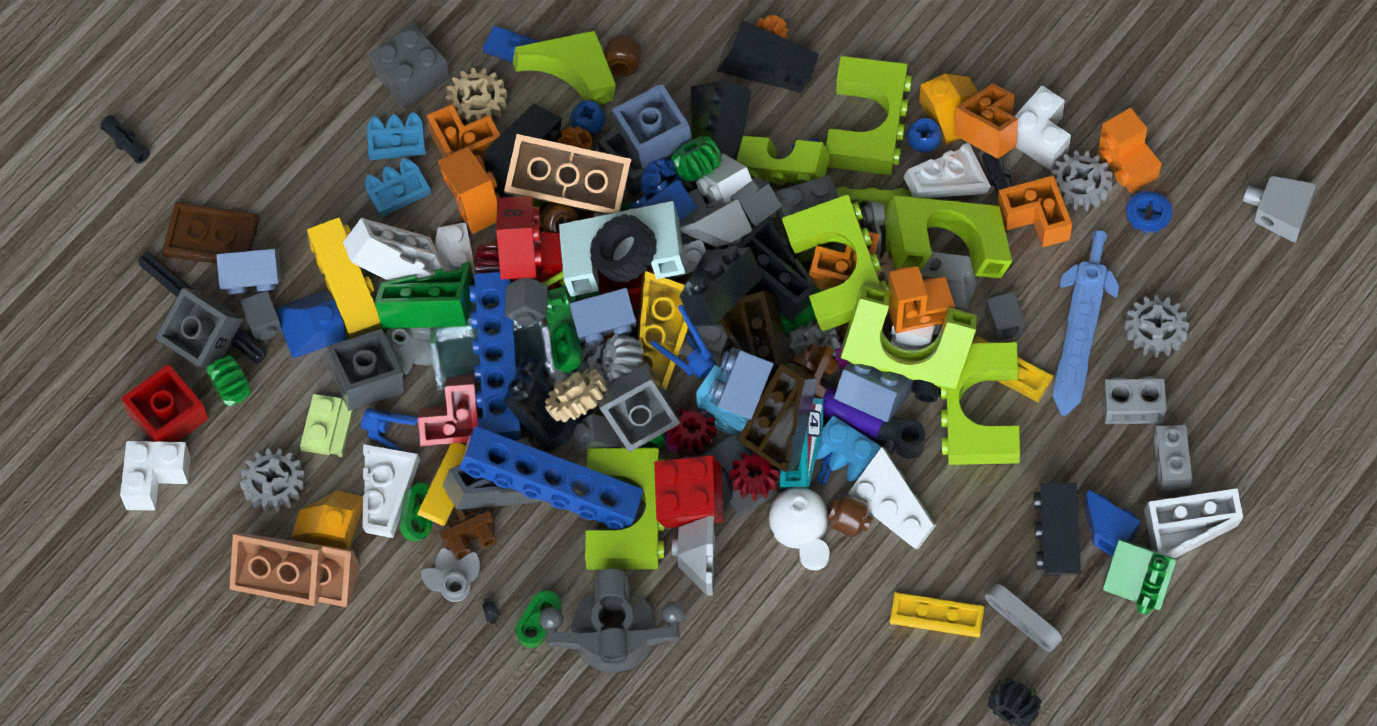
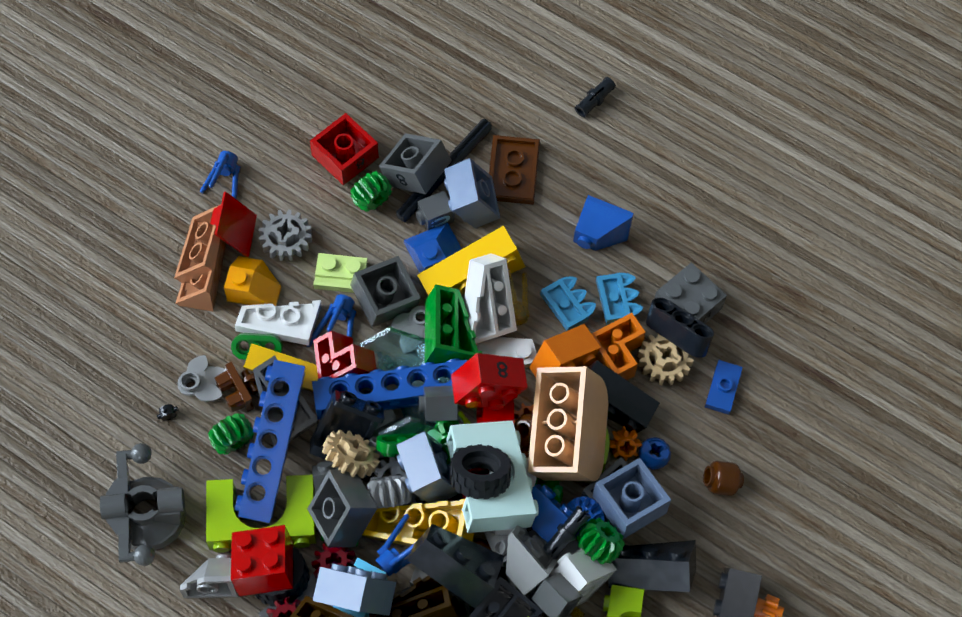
camera: 80 degrees right, 0 degrees up
(147, 466) = (290, 143): white brick -> none
(165, 547) = (224, 166): none -> blue plant
(253, 531) = (234, 223): none -> red piece
(304, 144) = (602, 225): none -> blue slope
(448, 72) = (679, 327): none -> black beam
(528, 535) = (231, 434): none -> green gear
(530, 619) = (161, 450): green plate -> none
(575, 60) = (713, 436): lime arch -> none
(688, 185) = (566, 532): none -> black pin

